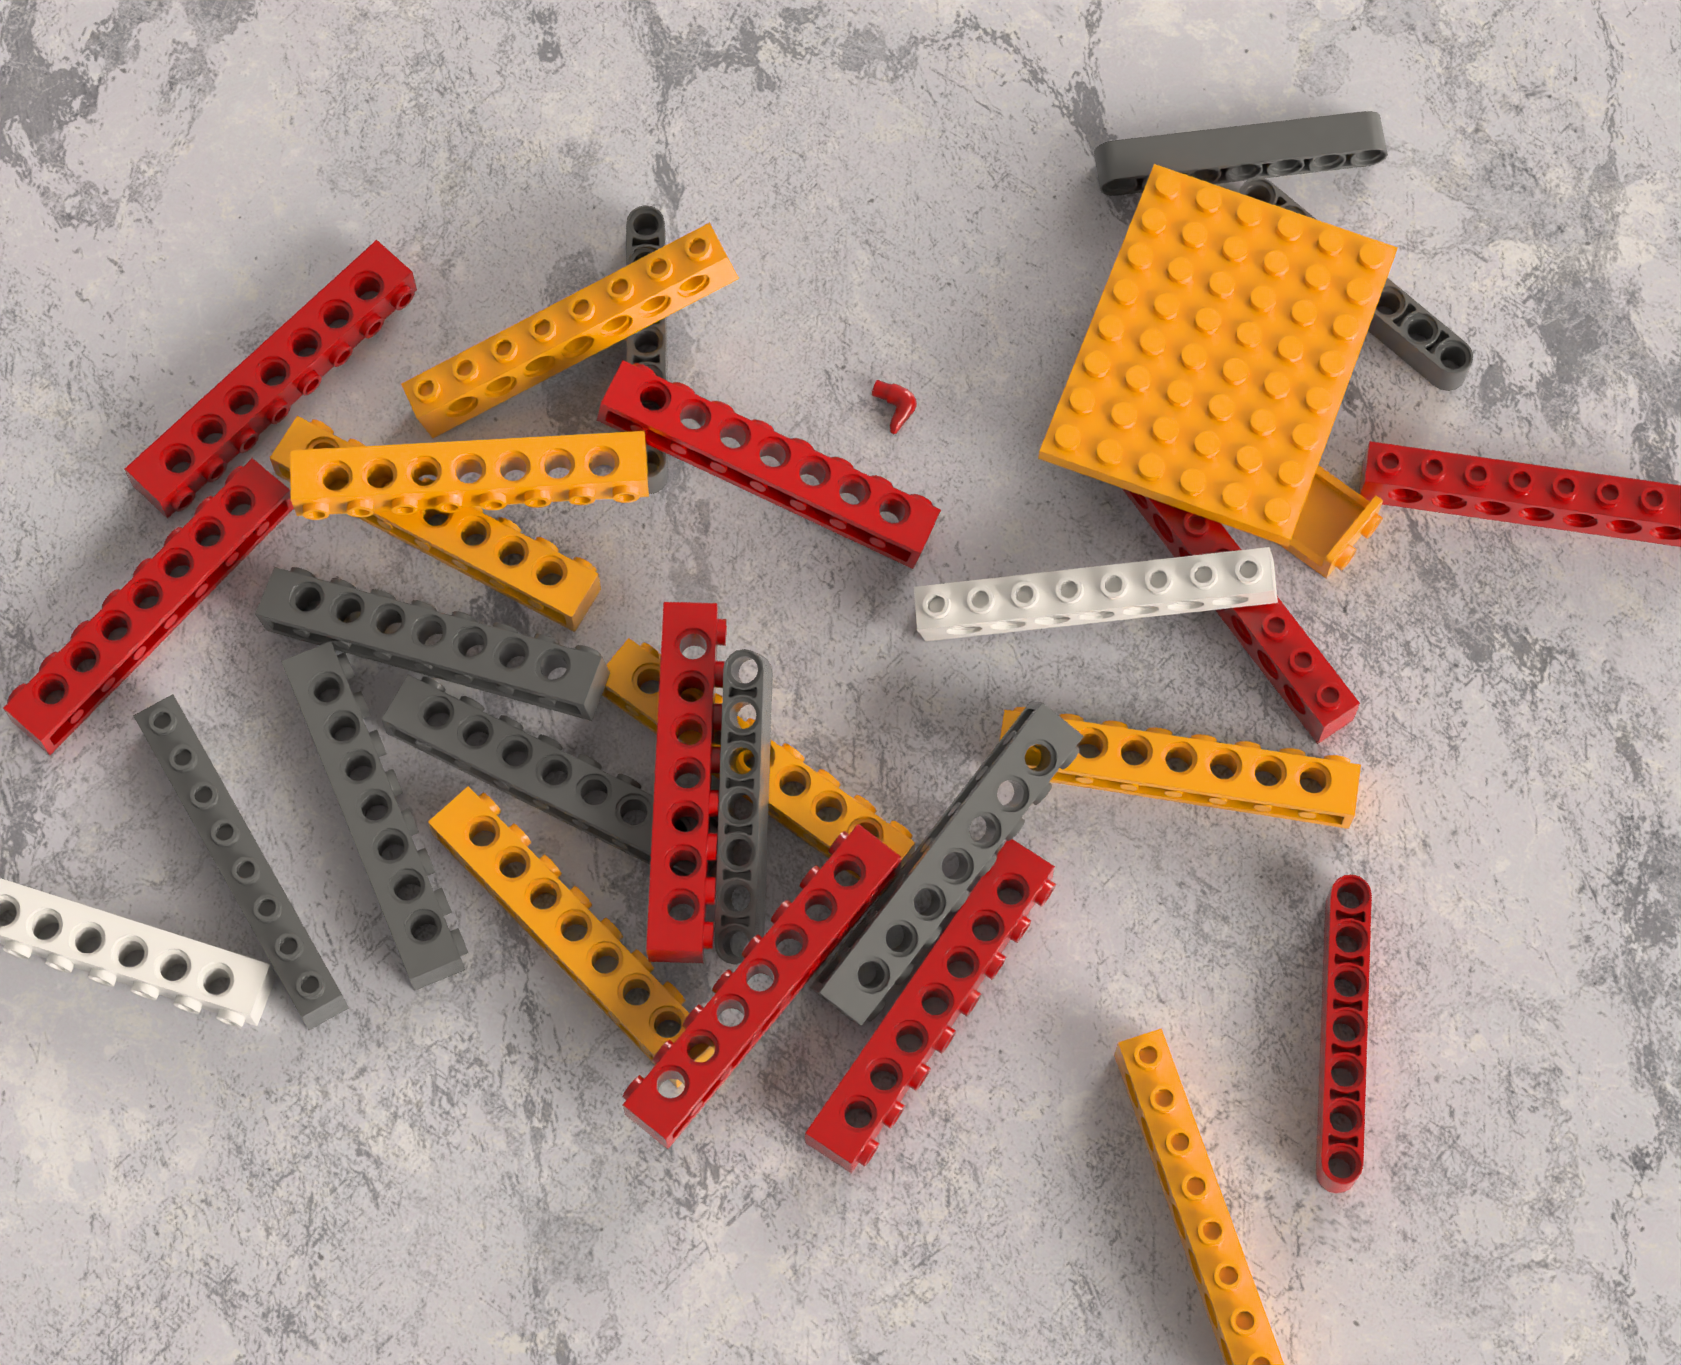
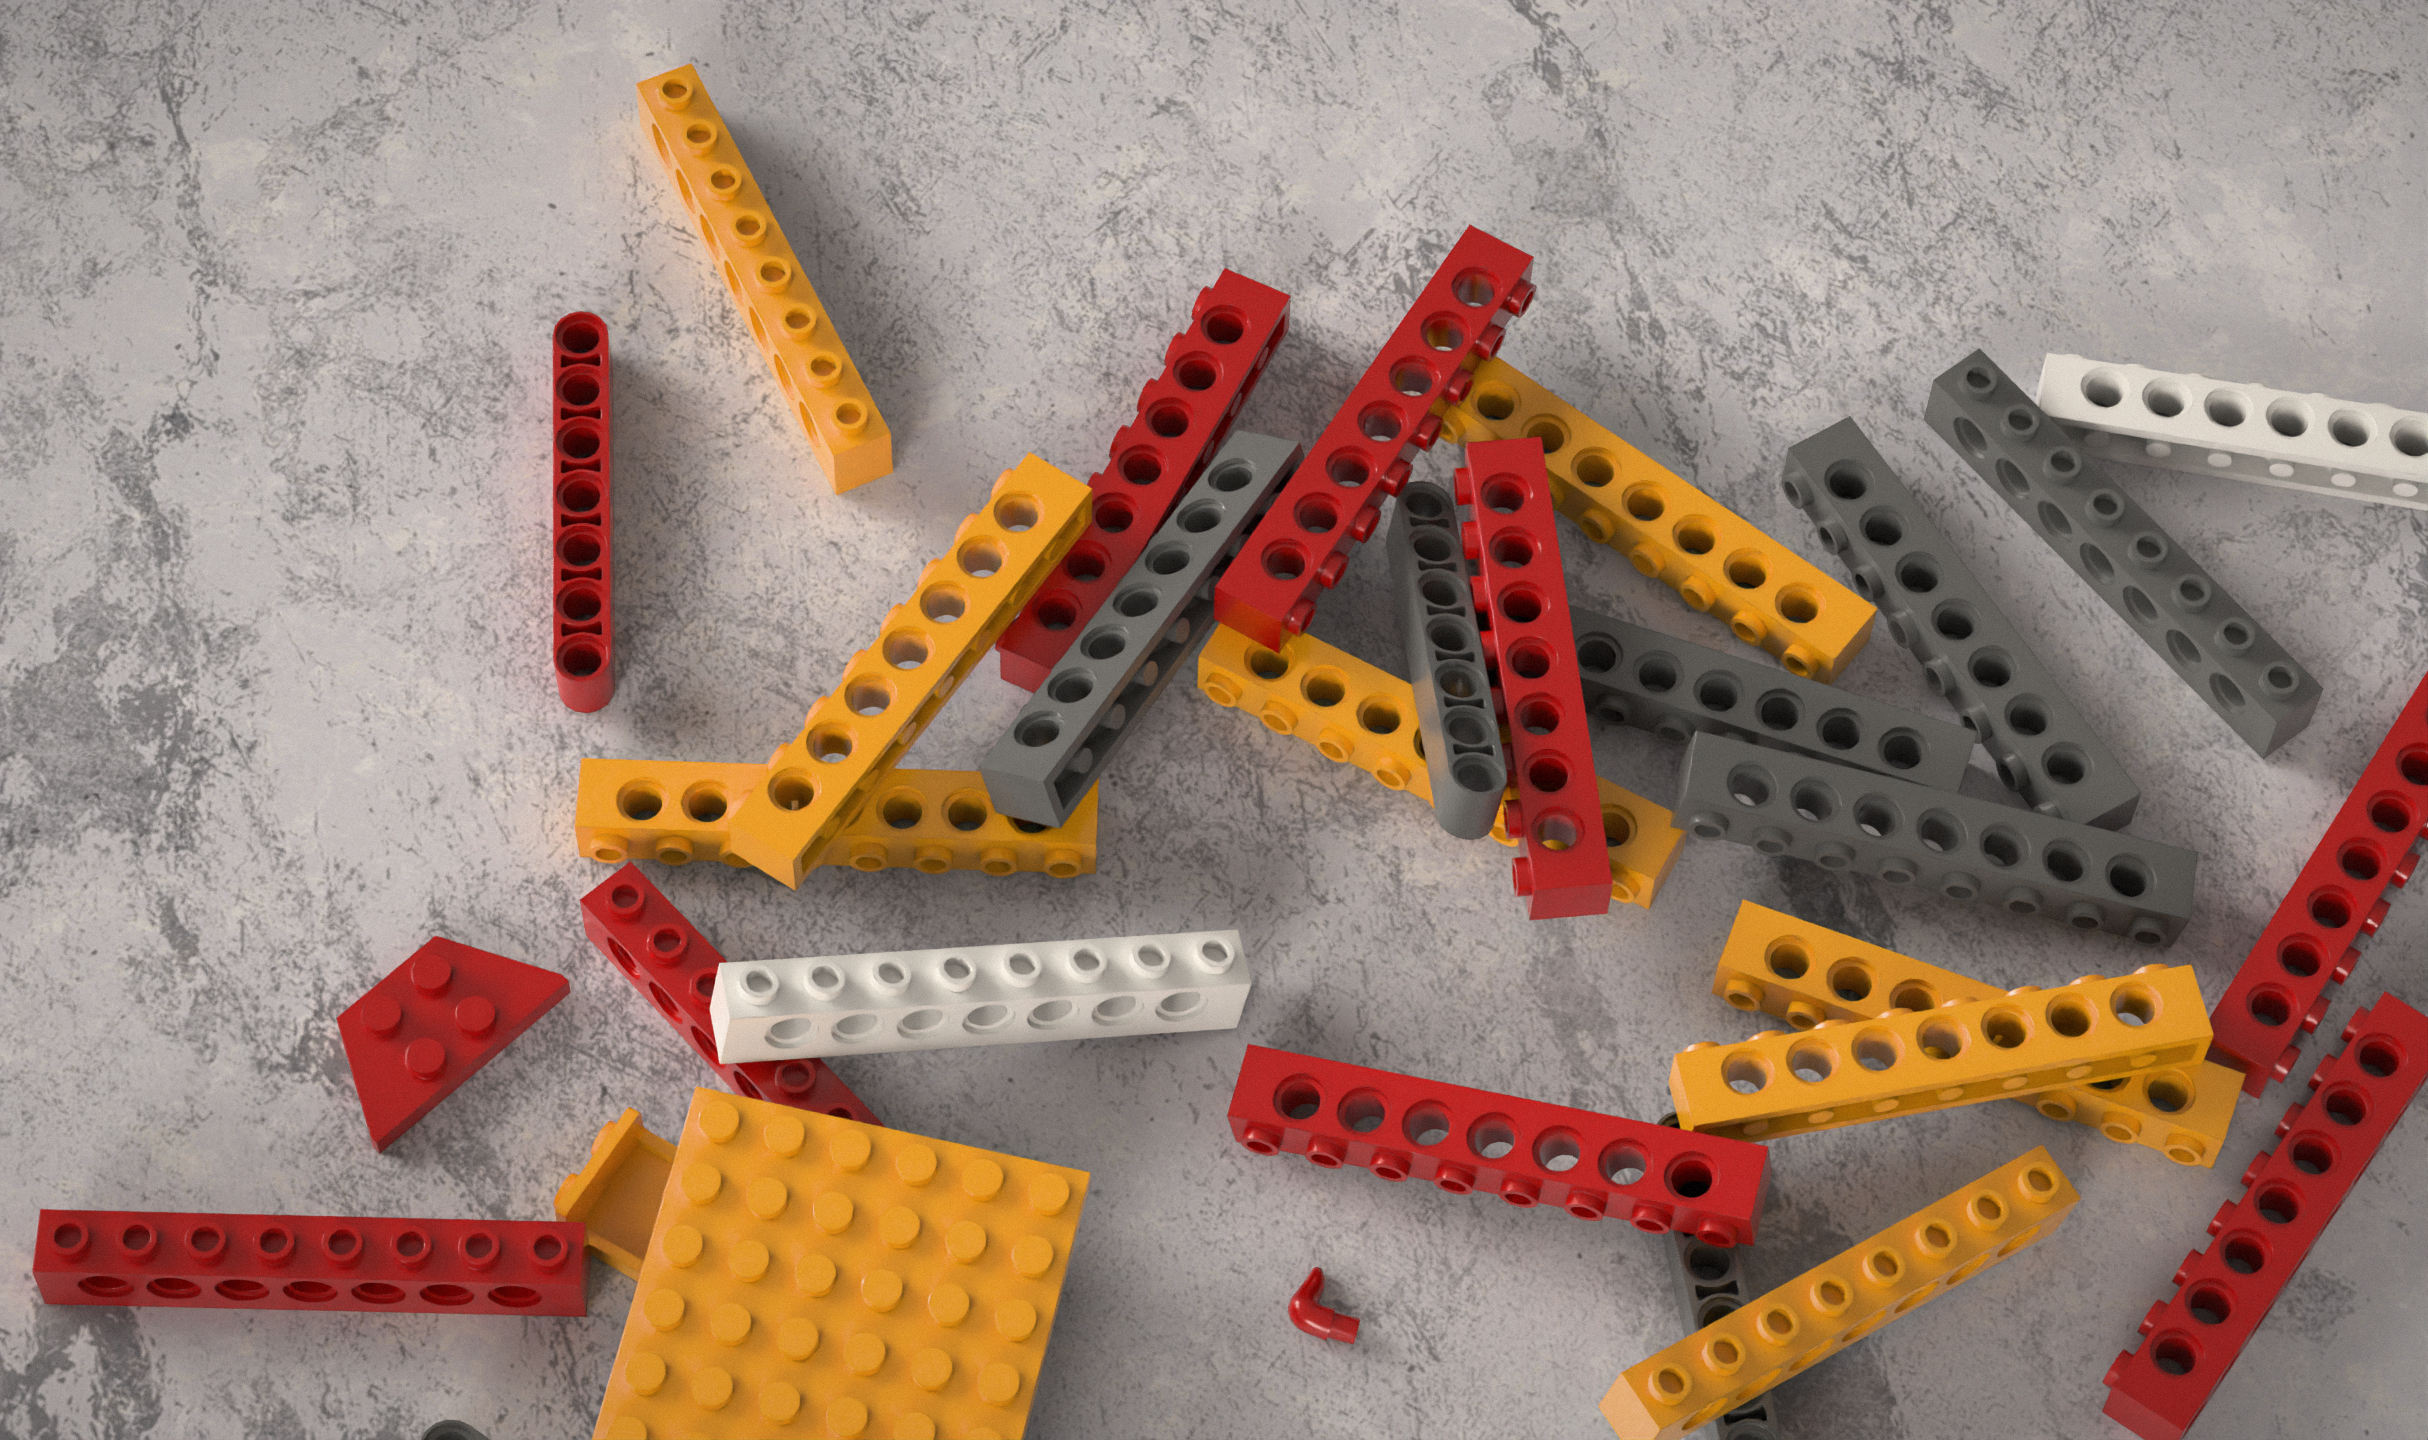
camera: 170 degrees right, 10 degrees down
(1215, 716) = (794, 841): none -> light orange brick
(1456, 659) = (437, 1027): none -> red wing

